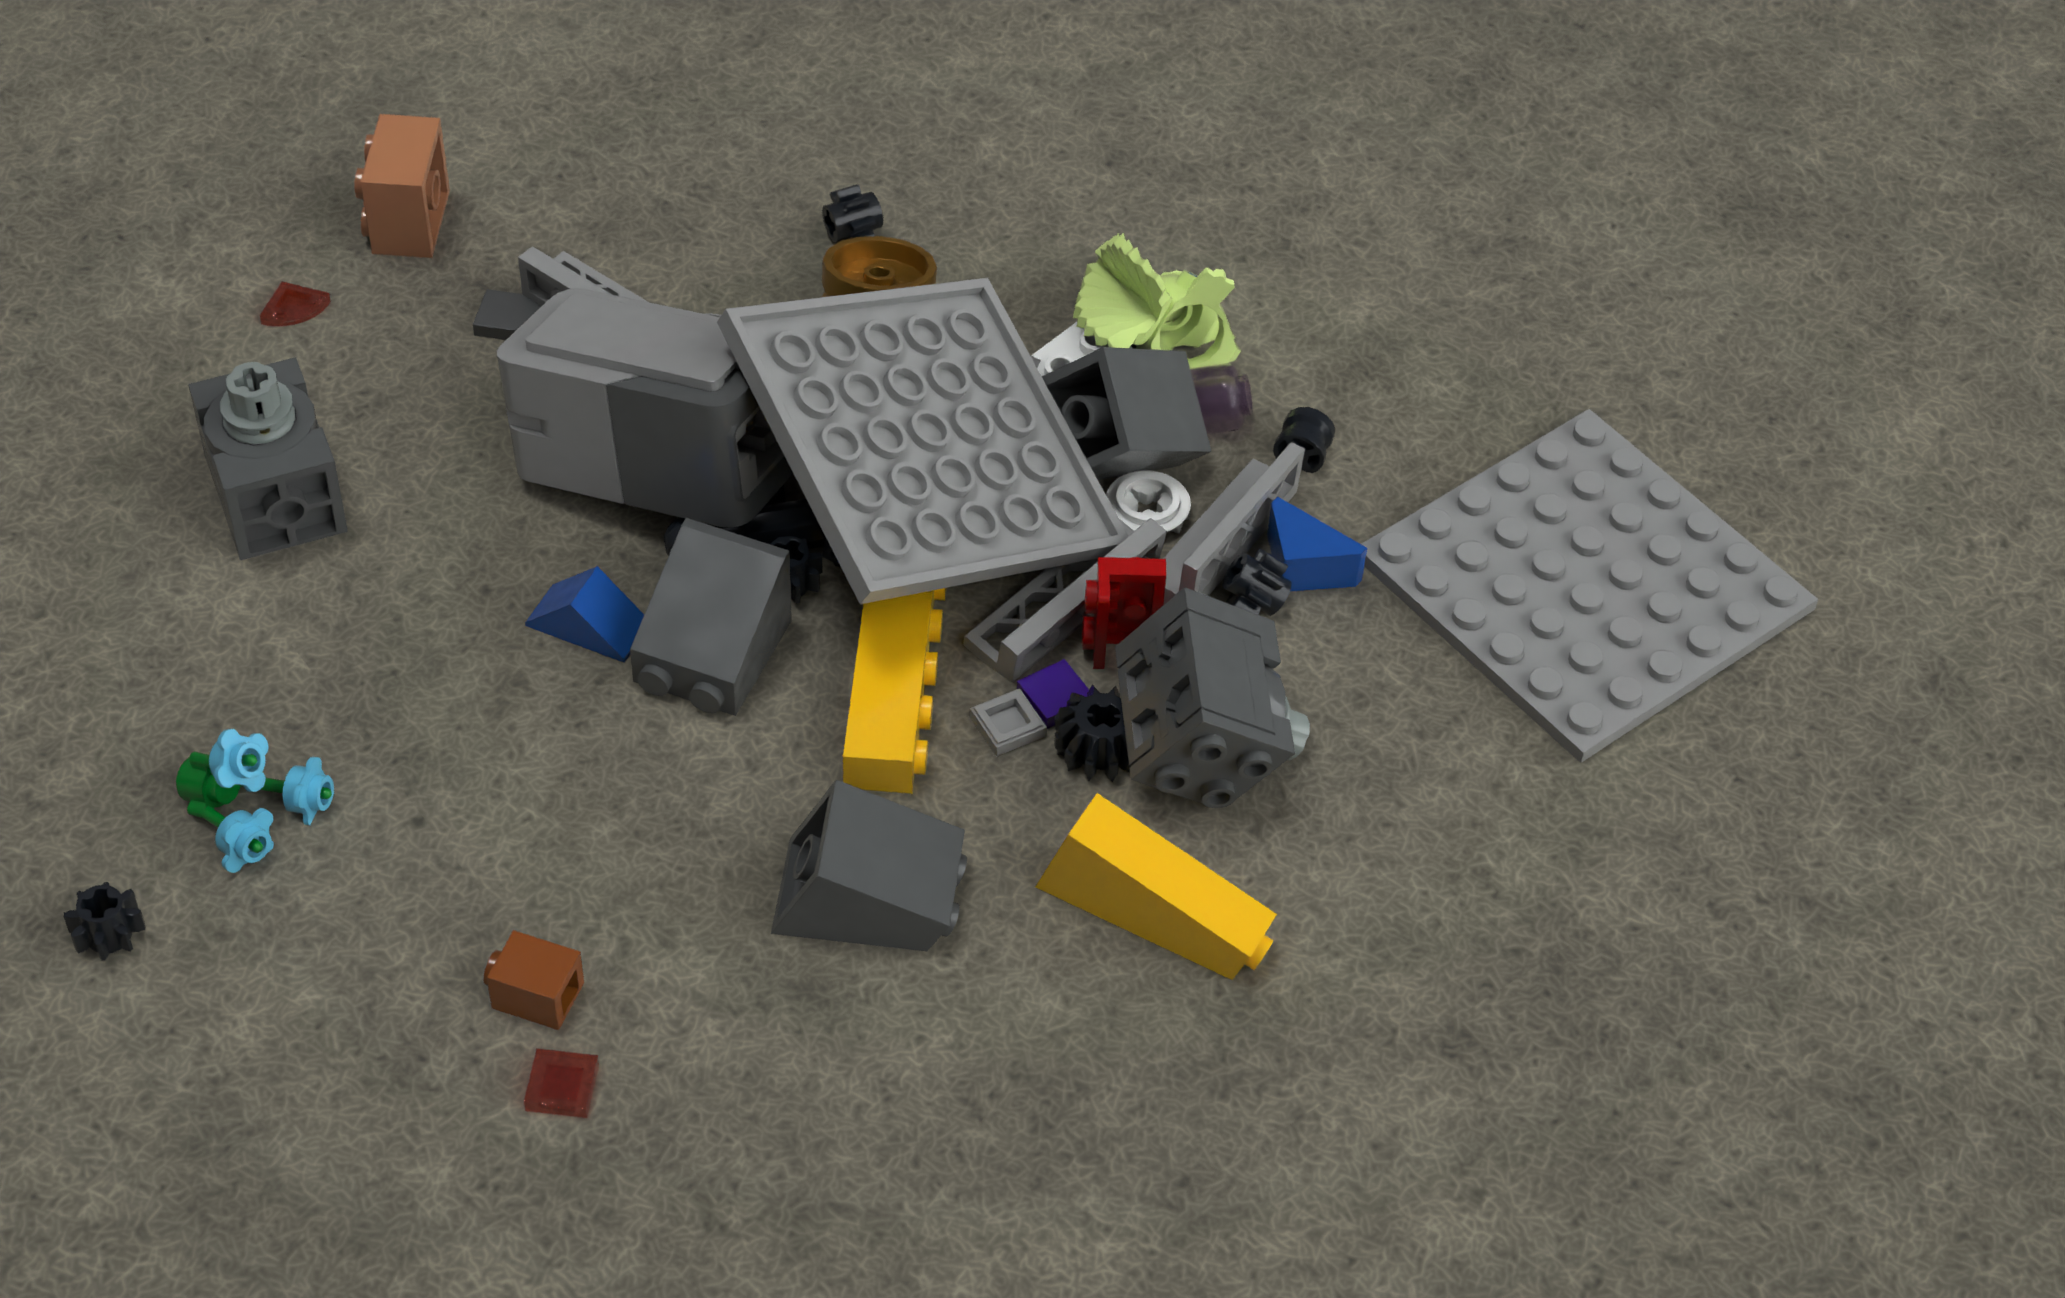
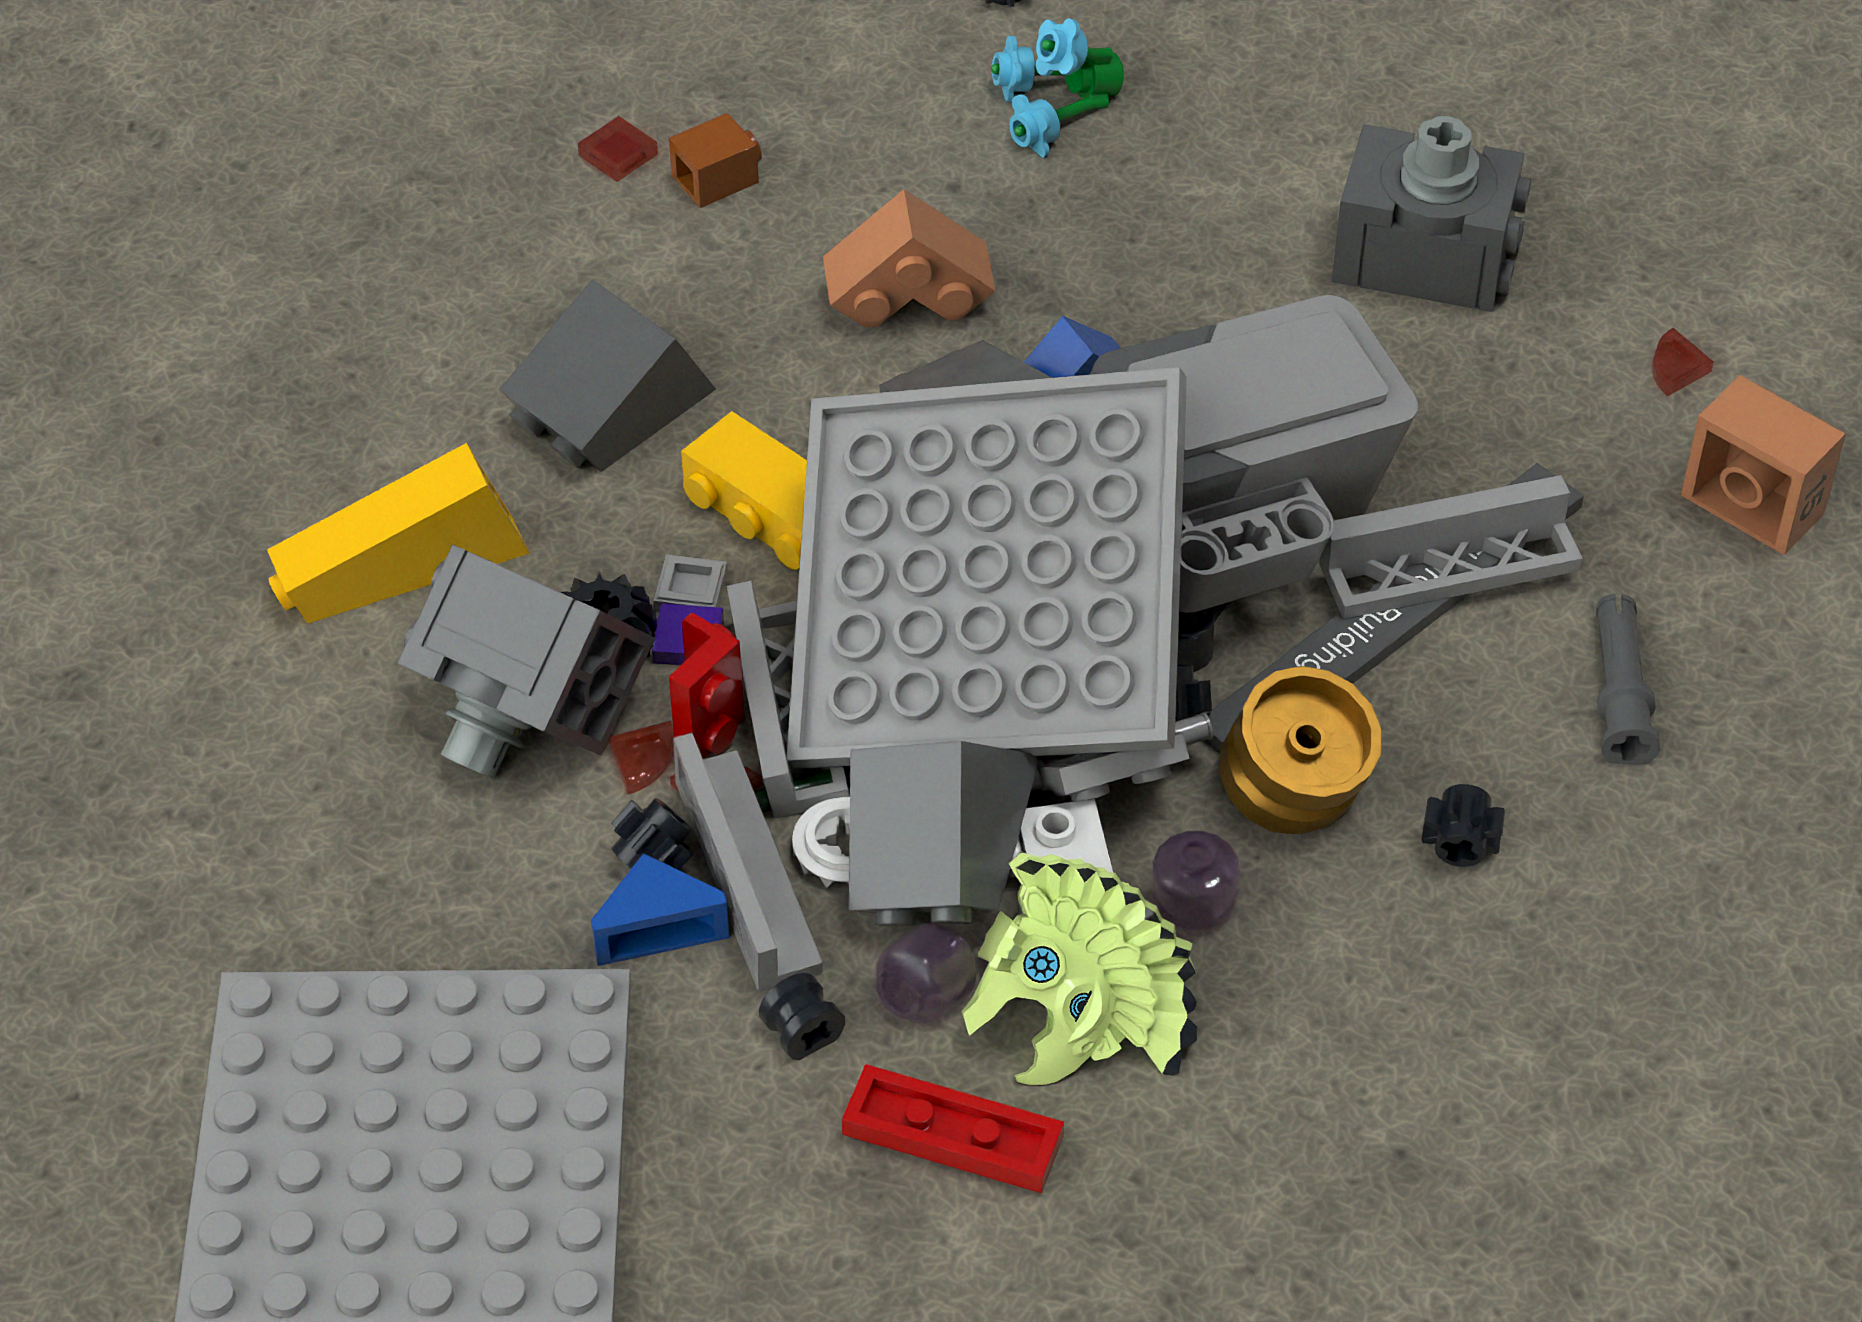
camera: 130 degrees right, 0 degrees up
(584, 747) = (907, 255): none -> nougat brick
(666, 196) = (1625, 699): none -> dark grey pin
(1028, 302) = (1195, 880): none -> clear purple head
(1303, 338) = (953, 1128): none -> red plate

